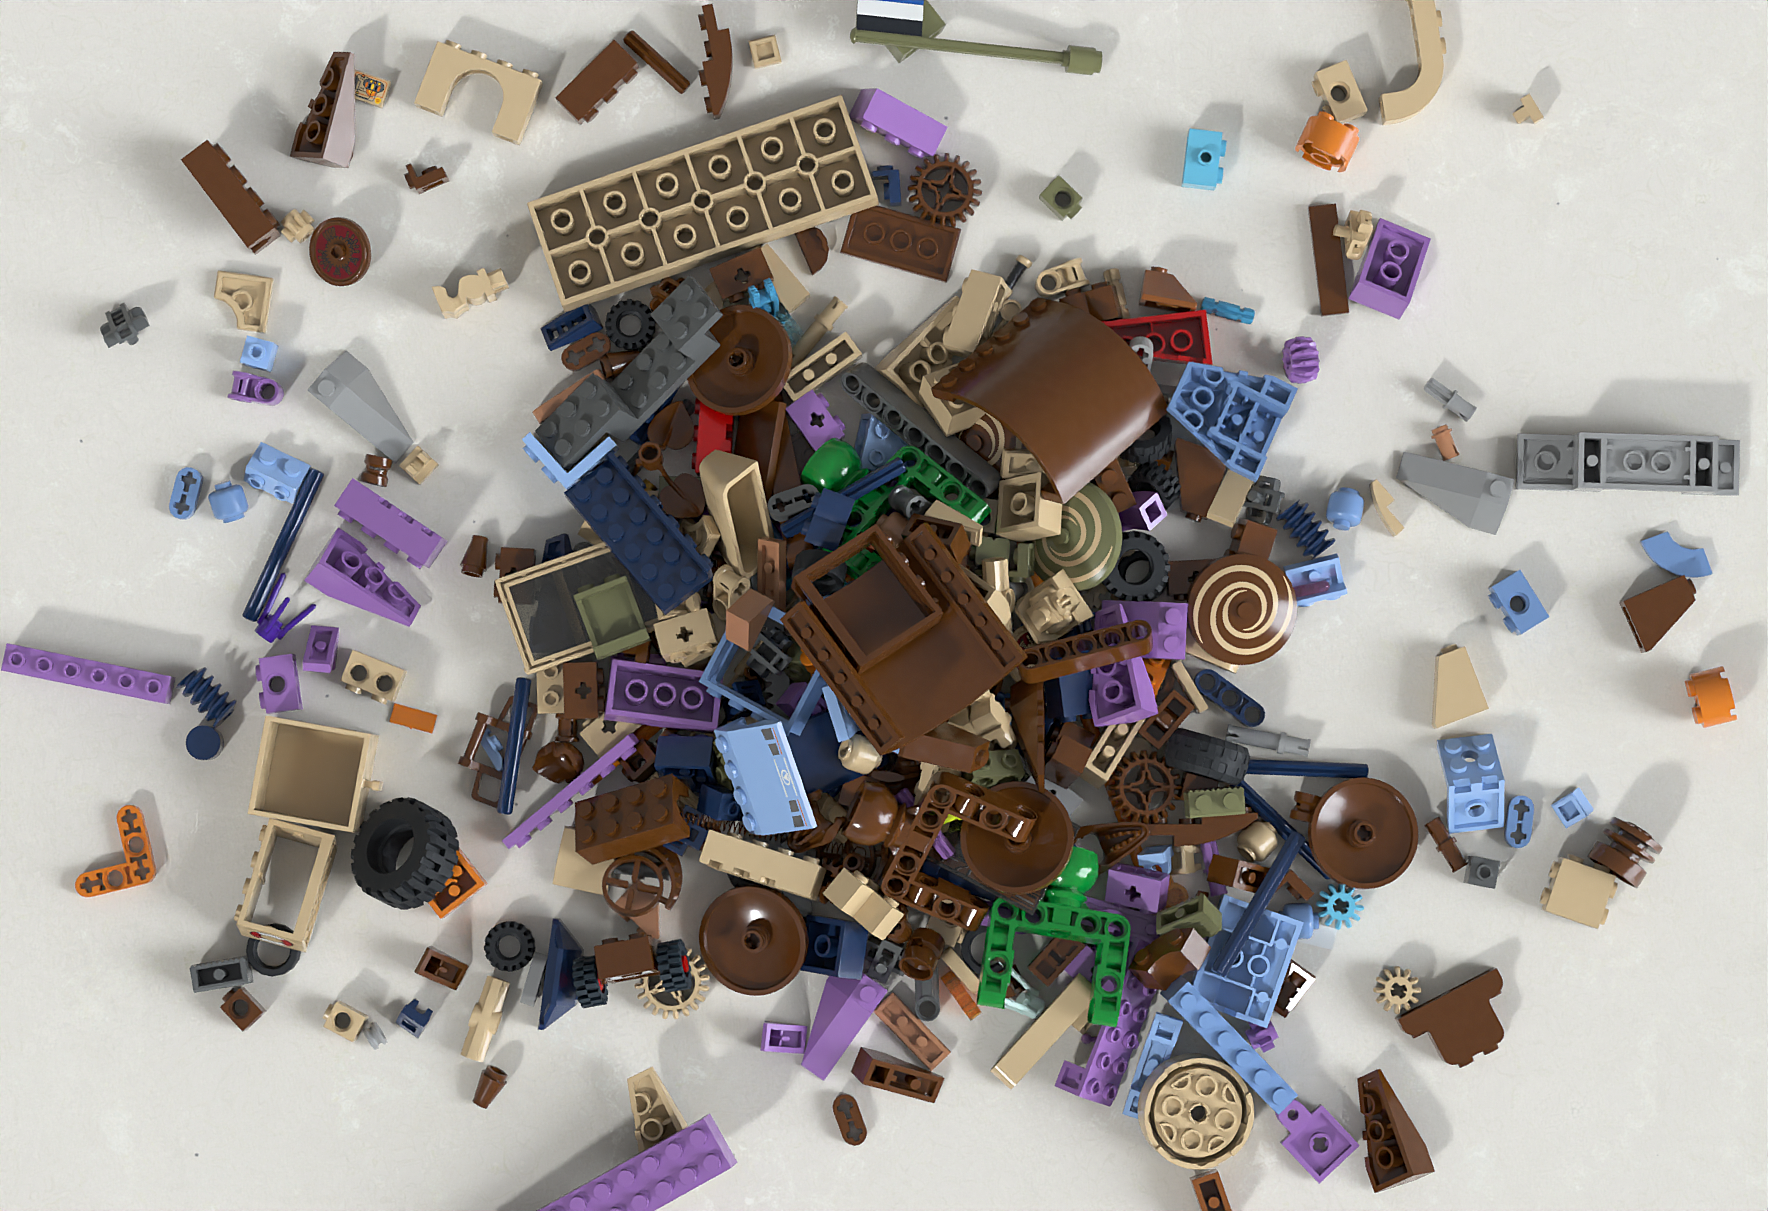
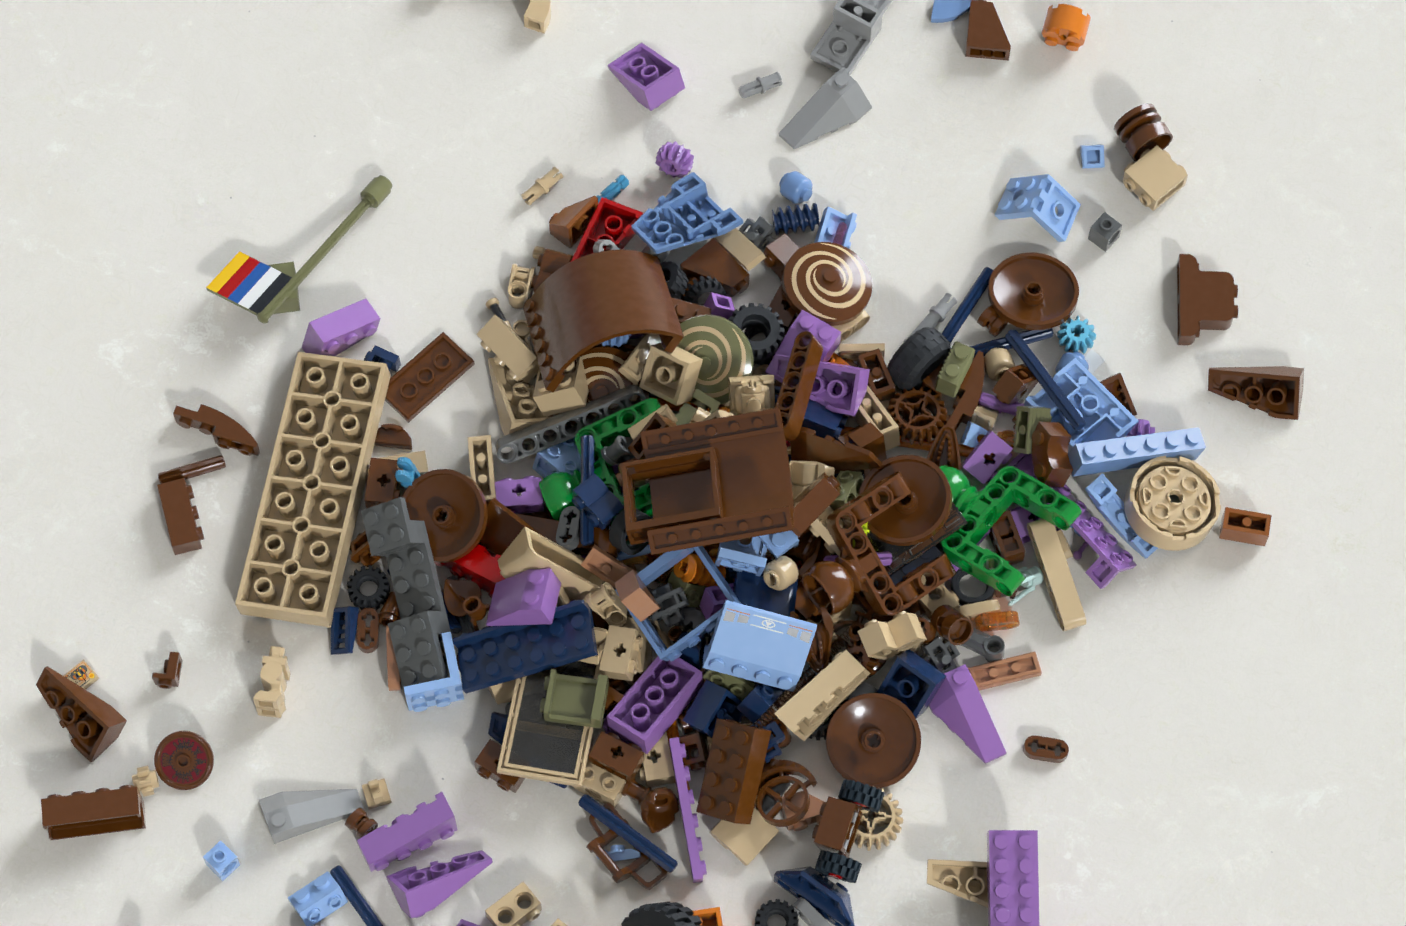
camera: 60 degrees left, 20 degrees down
(248, 298) = (172, 850): tan tile -> none
(250, 389) = (243, 880): medium lavender piece -> none
(413, 718) = (562, 902): orange window -> none
(451, 65) = (146, 573): tan arch -> none
(475, 559) = (471, 789): reddish brown cone -> none
(681, 505) = (525, 599): none -> medium lavender slope
(765, 52) = (233, 395): tan tile -> none
(783, 1037) = (956, 763): medium lavender slope -> none
(817, 330) = (450, 455): tan pin -> none
(896, 1075) = (1031, 696): reddish brown slope -> none
(932, 186) = (411, 315): reddish brown gear -> none
(1057, 187) = (461, 263): olive brick -> none
(1191, 233) = (542, 186): none -> tan pin
(1202, 159) = (495, 152): medium azure brick -> none
(1242, 702) = (892, 322): dark blue beam -> none
(1296, 886) = (1048, 354): reddish brown bracket -> none
(1305, 1128) = (1223, 438): medium lavender plate -> none
(1328, 142) = (535, 66): orange brick -> none
(1328, 260) = (615, 112): reddish brown tile -> none
(1339, 77) = (496, 37): tan brick -> none
(1356, 233) = (610, 81): tan piece -> none
(1381, 500) = (804, 163): tan slope -> none
(1395, 999) = (1150, 332): tan gear -> none
(1445, 442) = (788, 103): nougat pin -> none
(1446, 844) = (1072, 246): reddish brown pin -> none
(1455, 687) = (964, 183): tan slope -> none
(1512, 820) = (1083, 192): medium blue beam -> none
(1532, 610) = (936, 106): medium blue brick -> none

